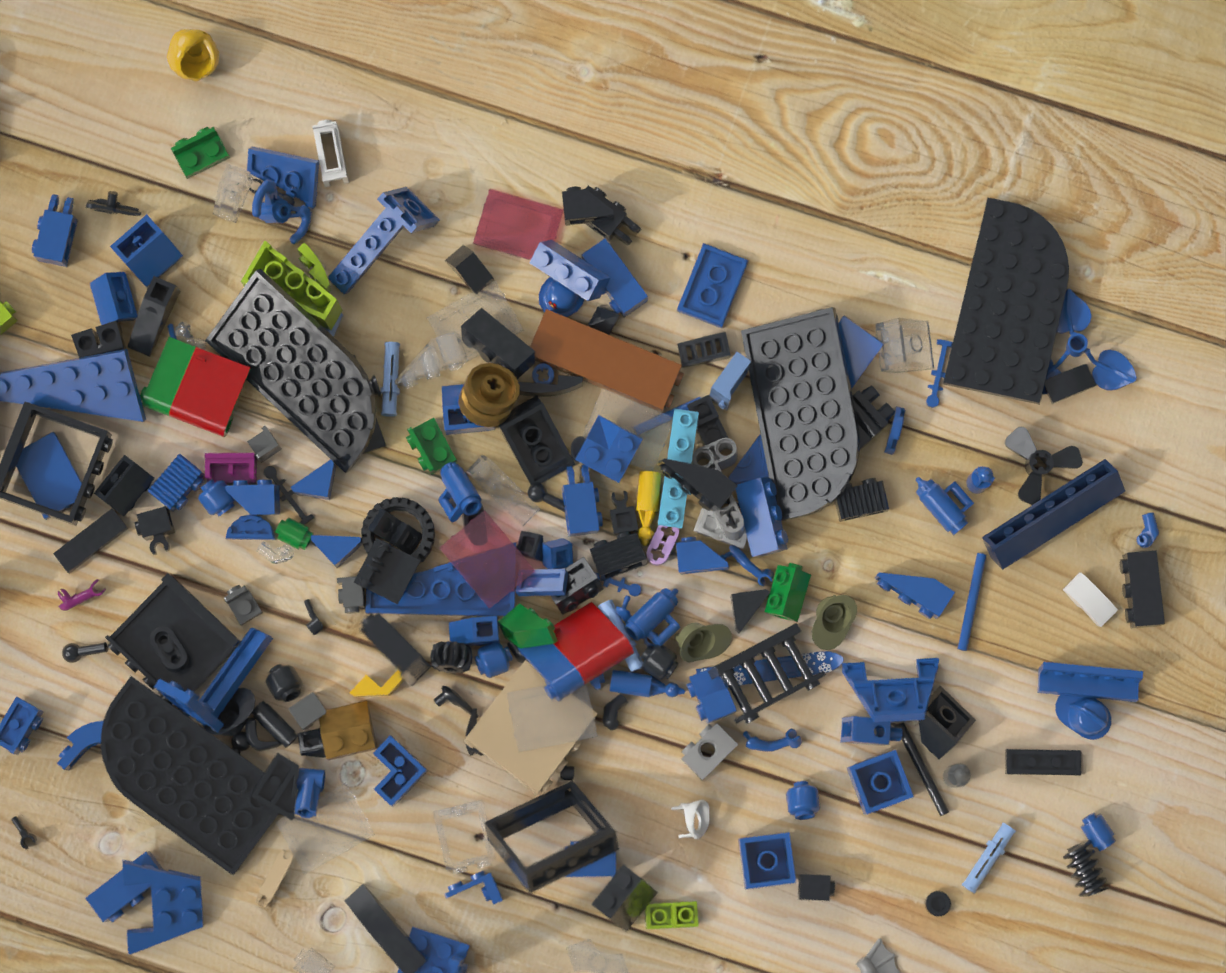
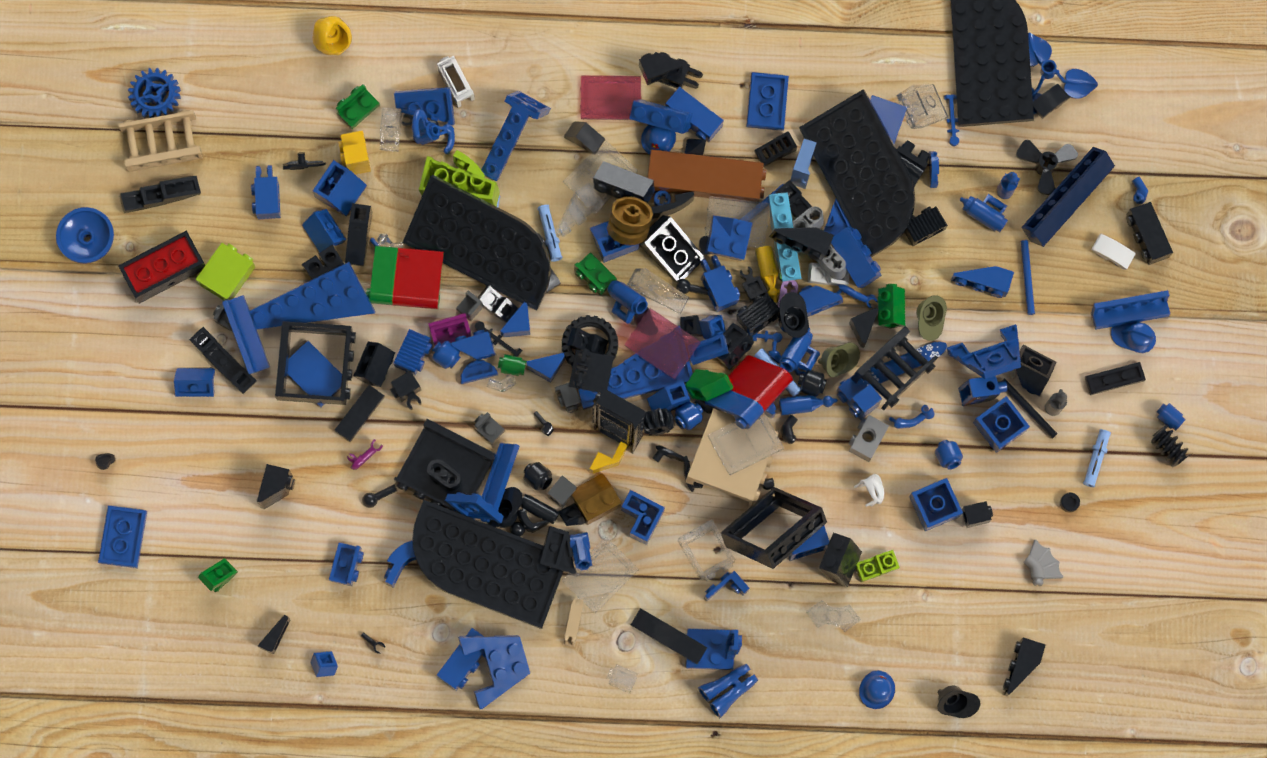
camera: 20 degrees left, 5 degrees down
(178, 211) = (355, 152): none -> yellow brick
(299, 450) = (497, 304): none -> slope
(660, 570) = (793, 315): none -> black piece

